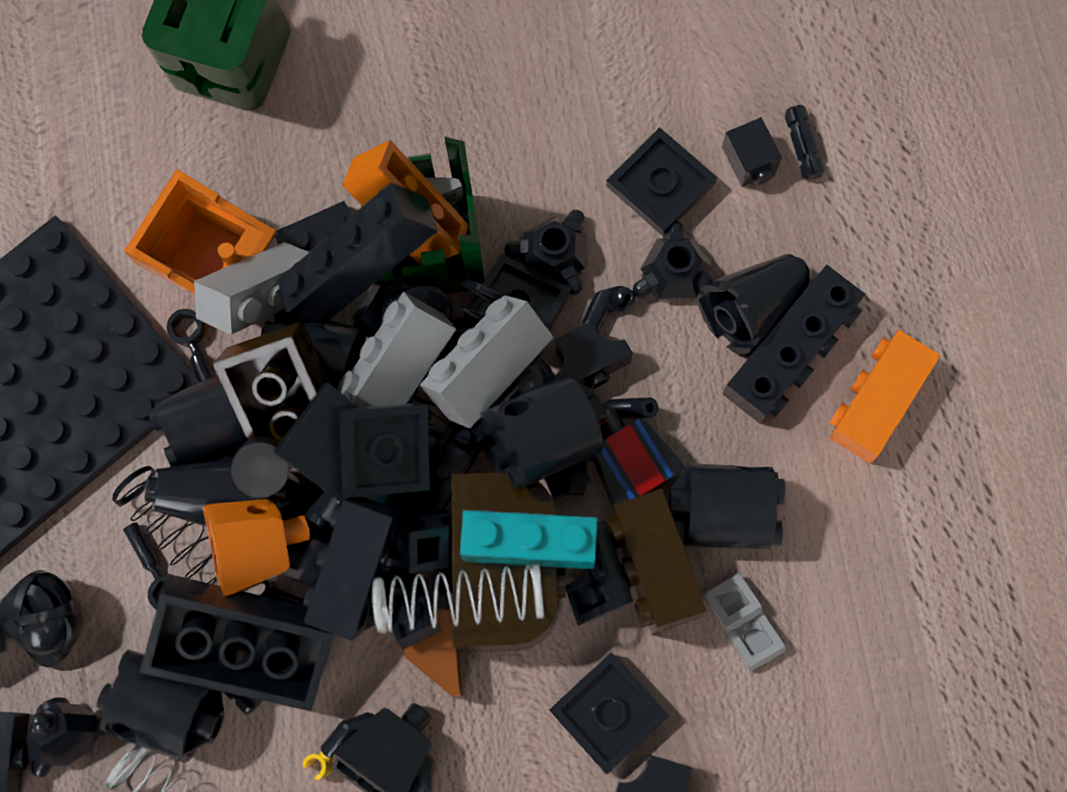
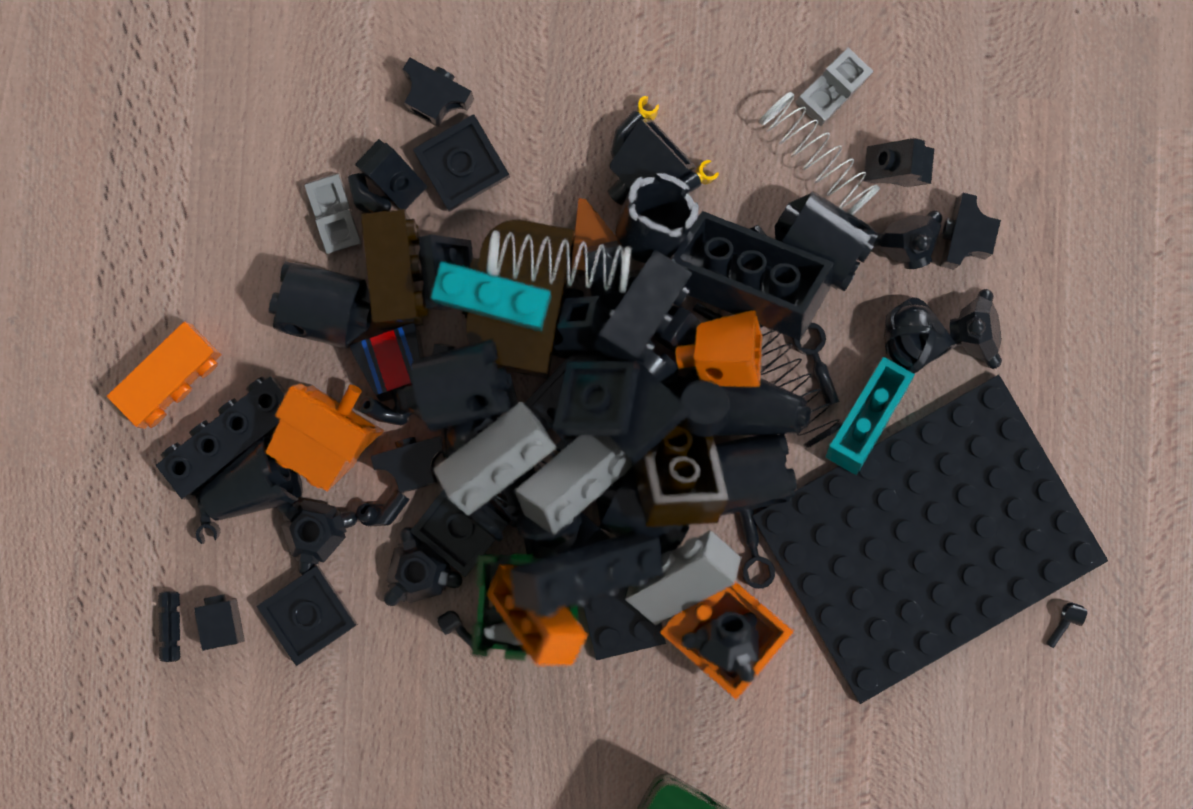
camera: 170 degrees left, 10 degrees up
(80, 514) = (869, 415): none -> teal brick
(195, 226) = (728, 643): none -> black rock
(360, 684) = (655, 217): none -> black cylinder
(507, 208) = (450, 622): none -> black hand
(688, 362) = (320, 434): none -> orange piece
(688, 678) = (391, 174): none -> black brick
(708, 644) = (364, 199): none -> black arm
(794, 249) = (206, 523): none -> black hand

